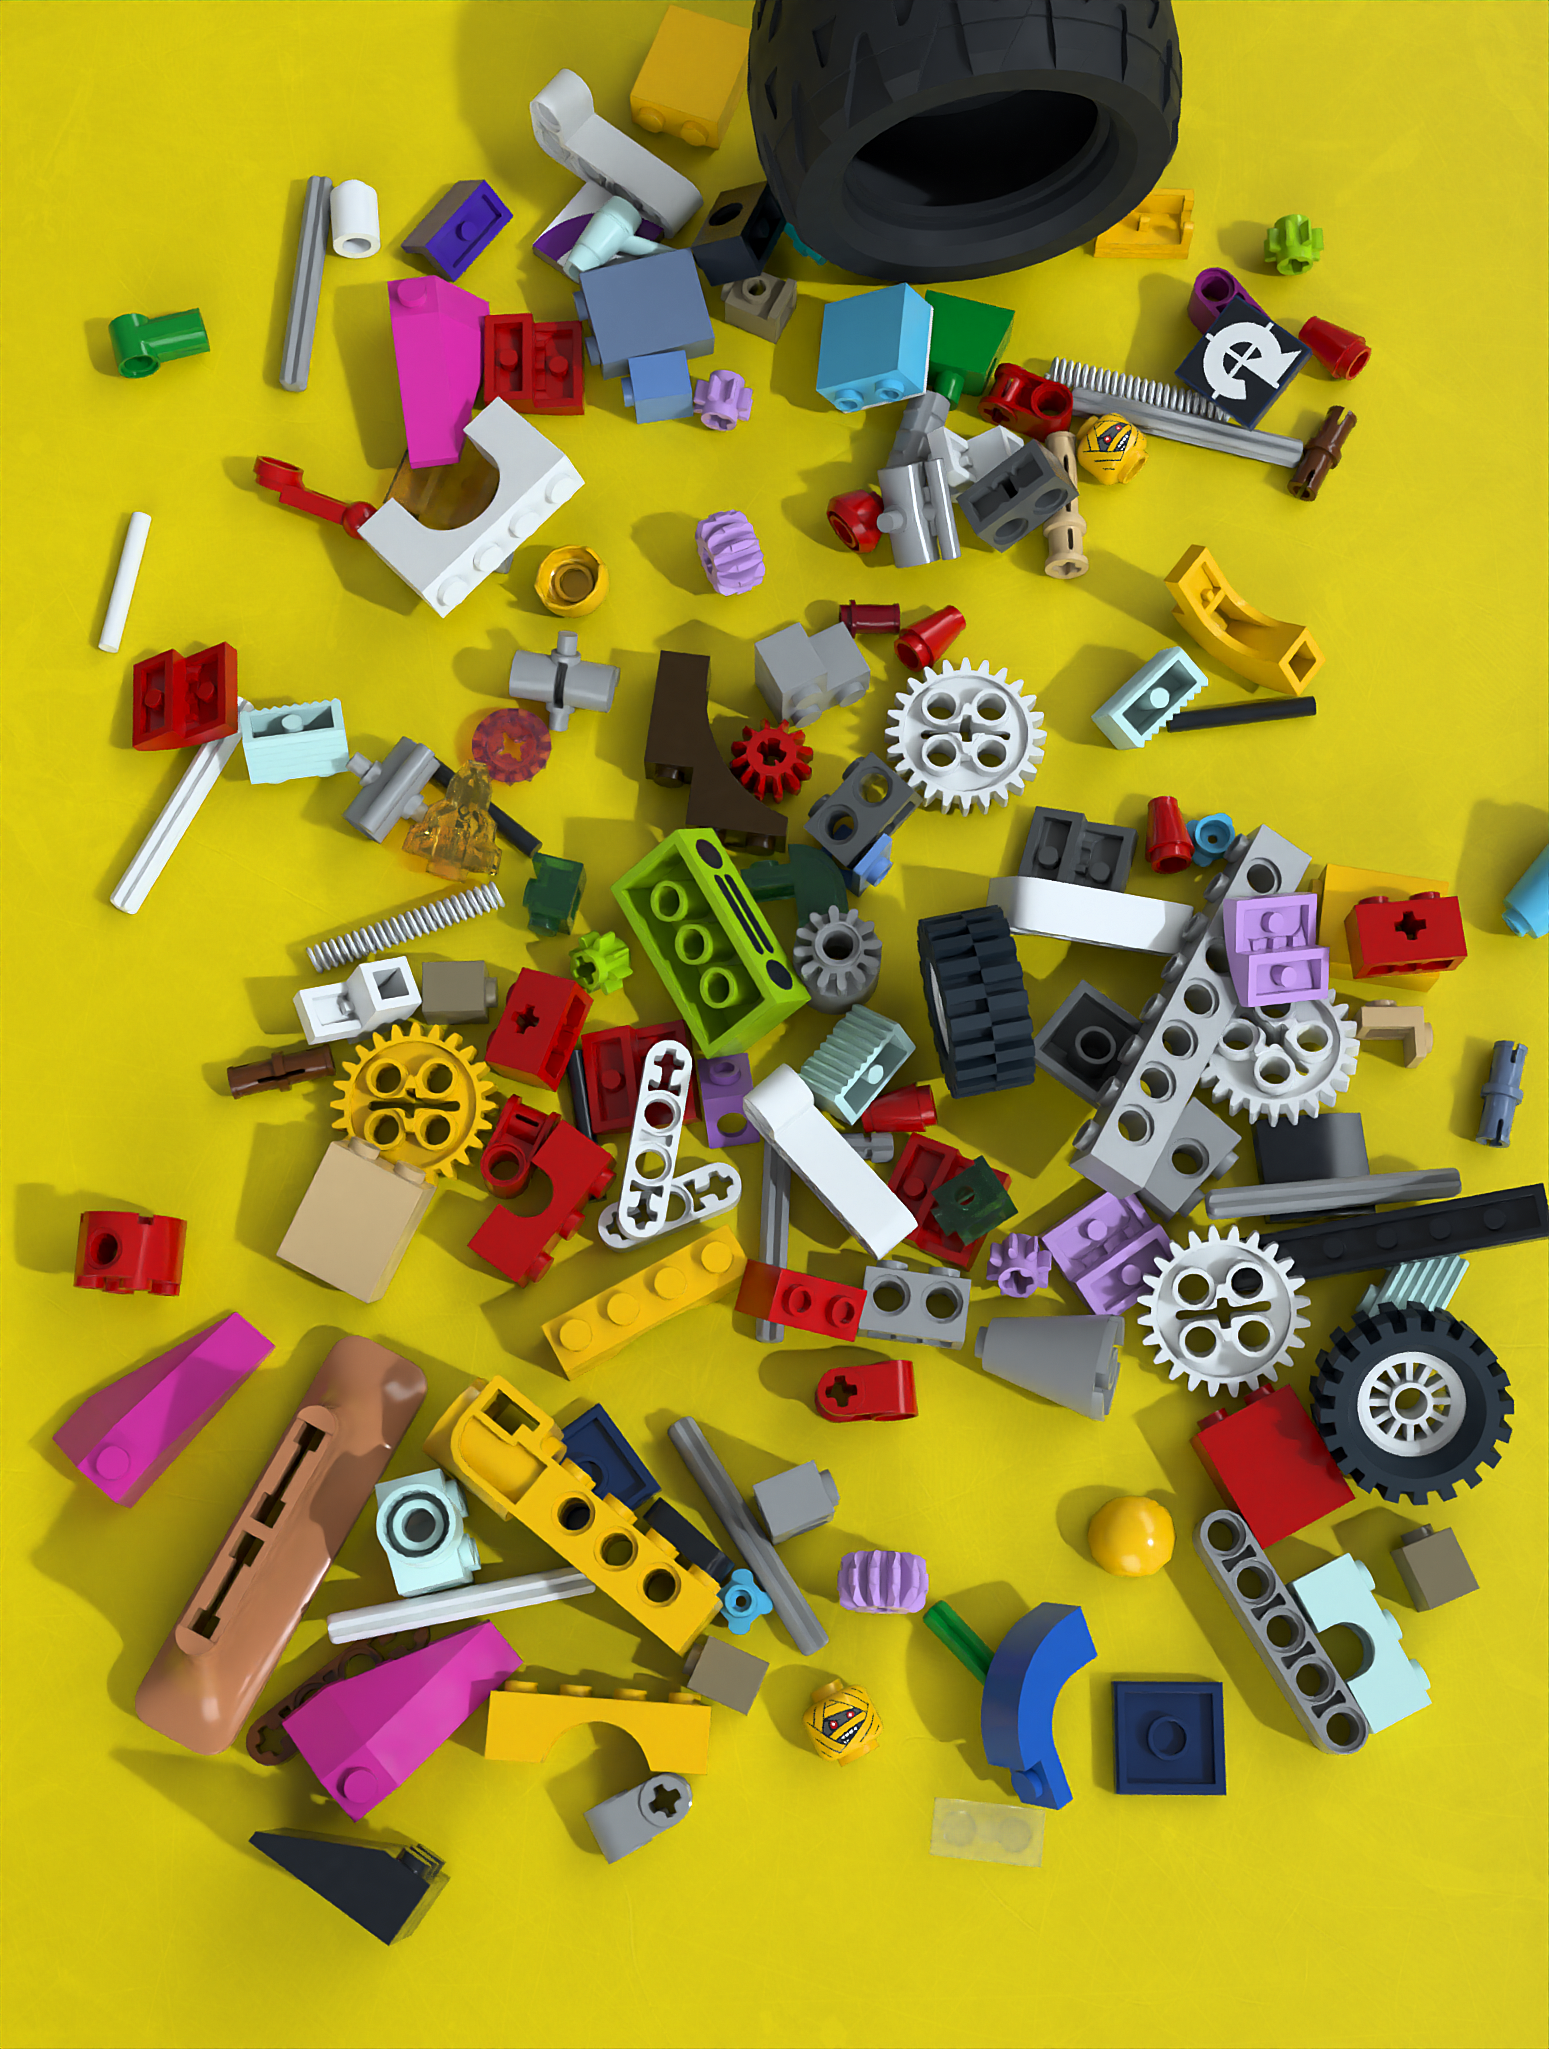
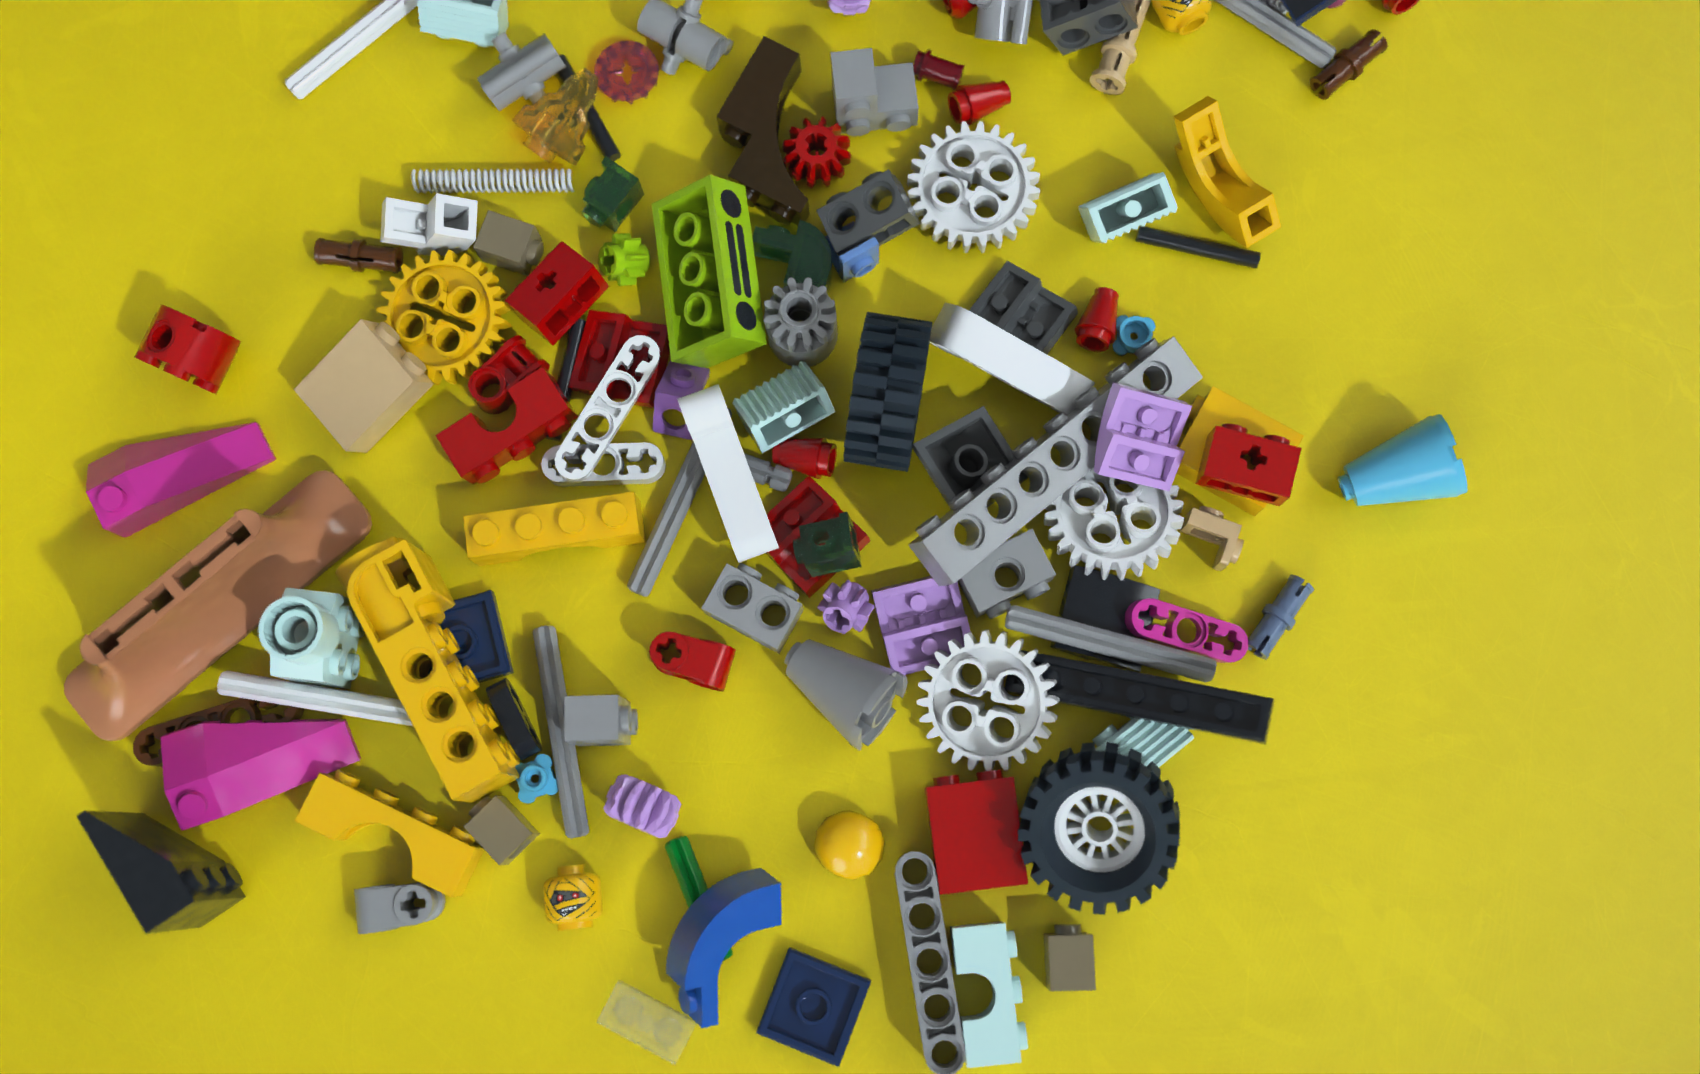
camera: 25 degrees right, 5 degrees up
(800, 1300) = (665, 570): red brick -> none
(1425, 1133) = (1218, 628): none -> dark pink beam

